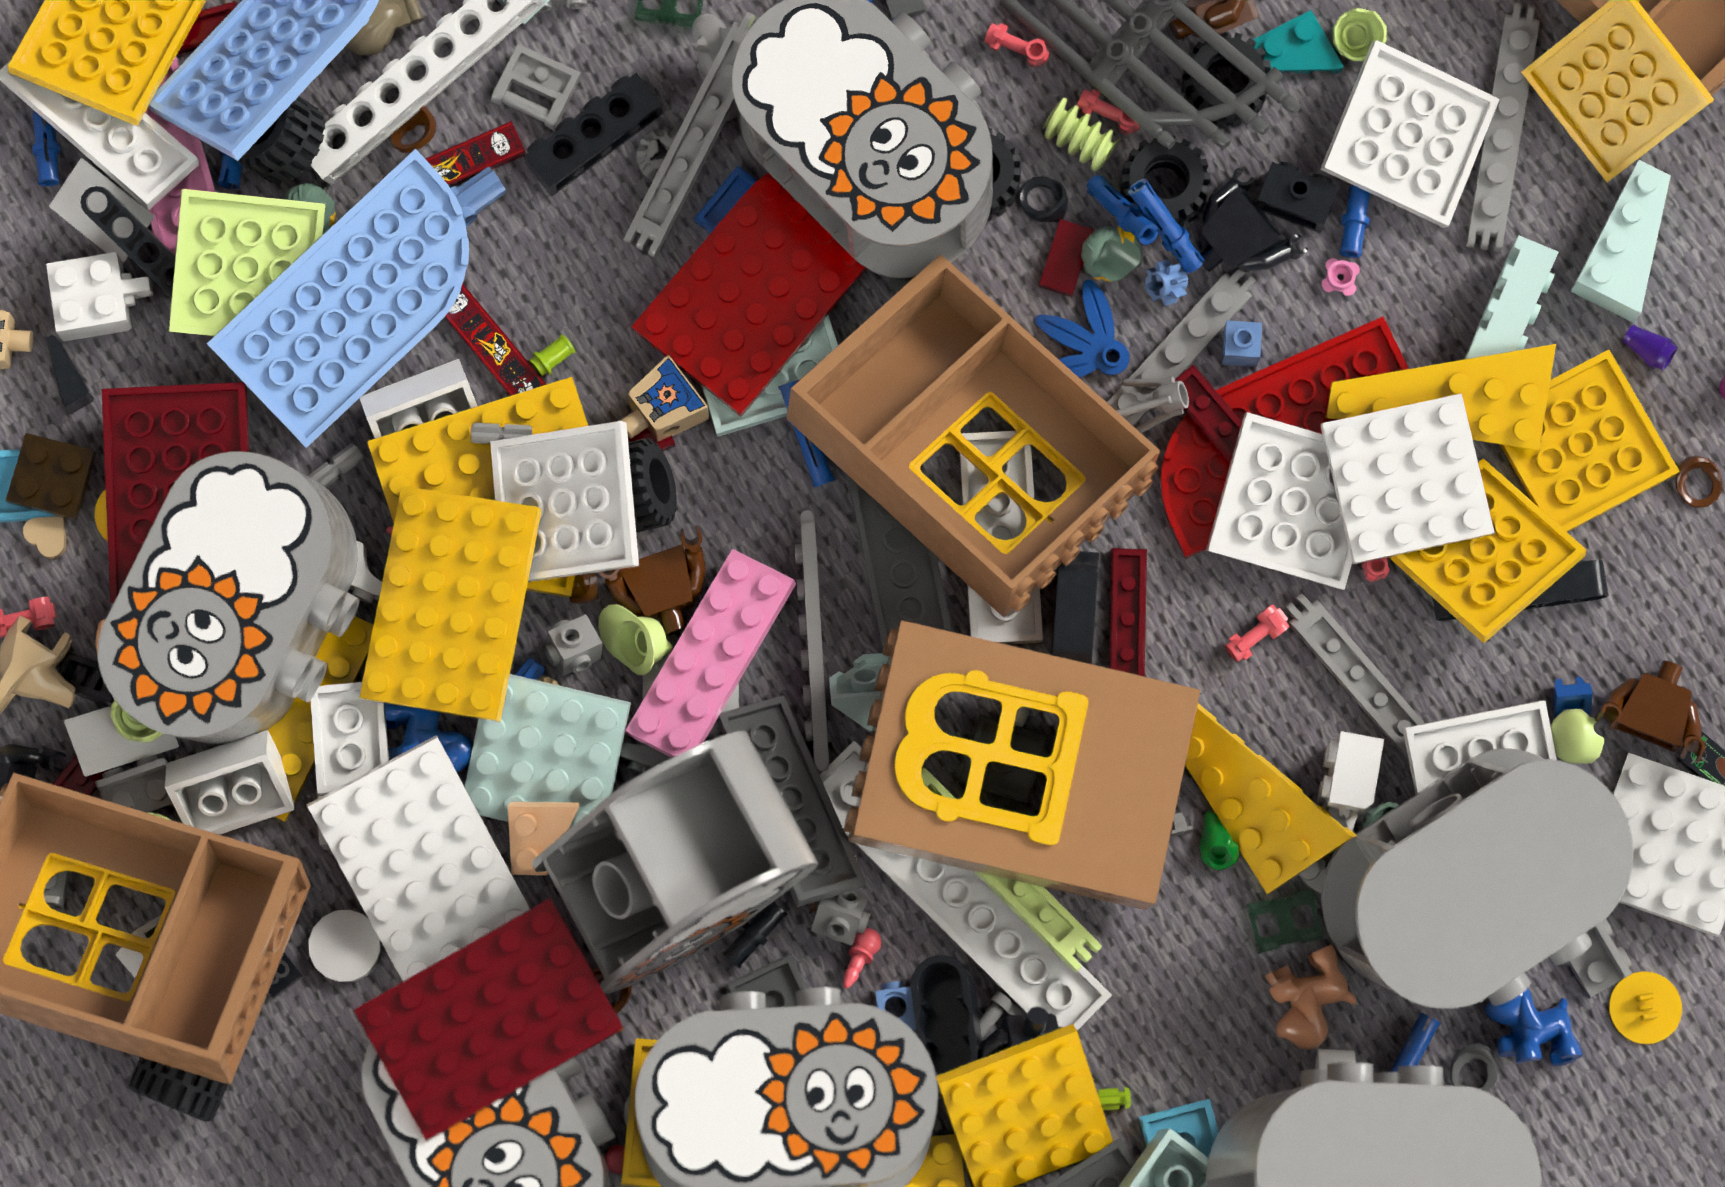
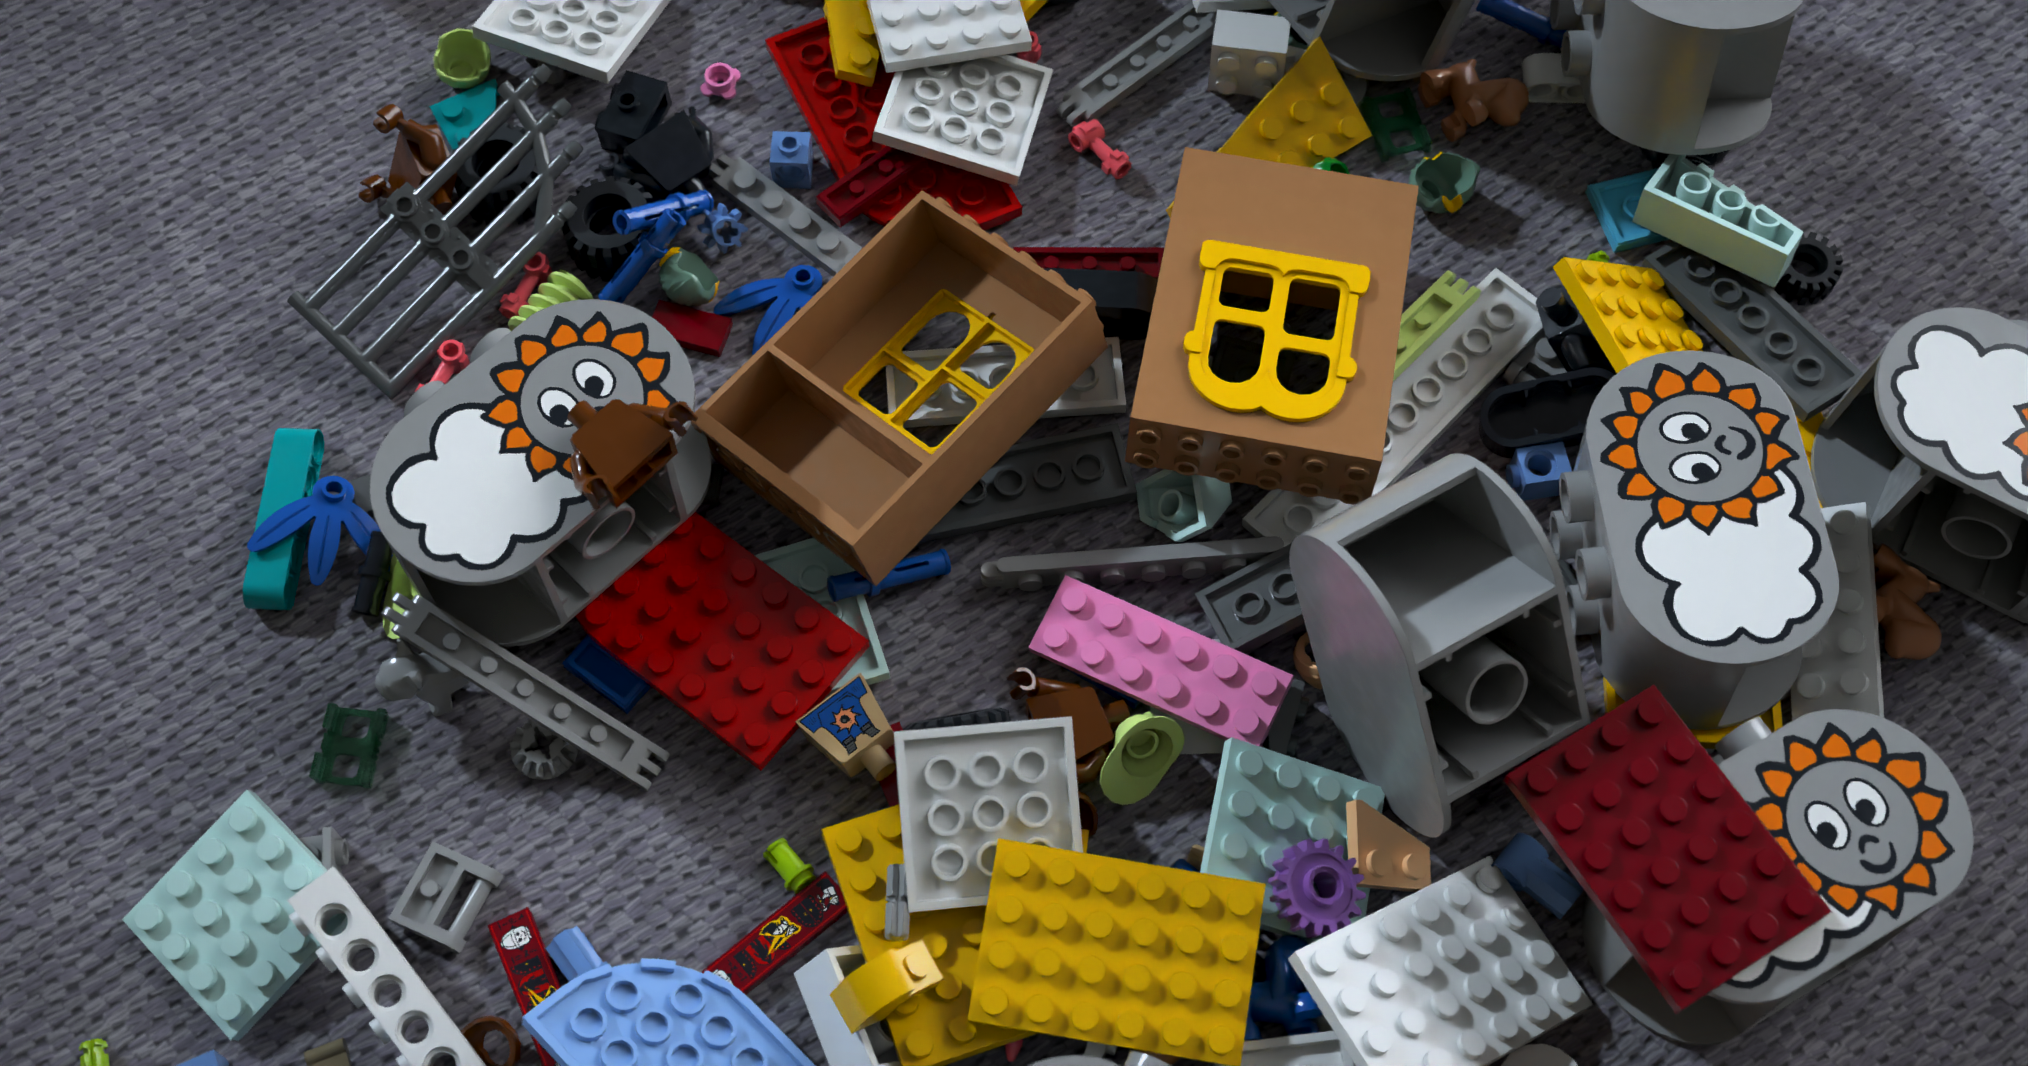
camera: 90 degrees left, 15 degrees down
(431, 424) = (885, 983): none -> yellow brick
(486, 780) = (1336, 884): none -> medium lavender gear
(573, 645) = (1151, 822): light grey brick -> none
(615, 131) = (481, 770): black brick -> none
(837, 183) = (622, 446): none -> reddish brown torso
(1170, 398) = (855, 211): light grey plant -> none
(1205, 953) = (1444, 182): none -> sand green hair
(1355, 222) = (664, 67): blue pin -> none

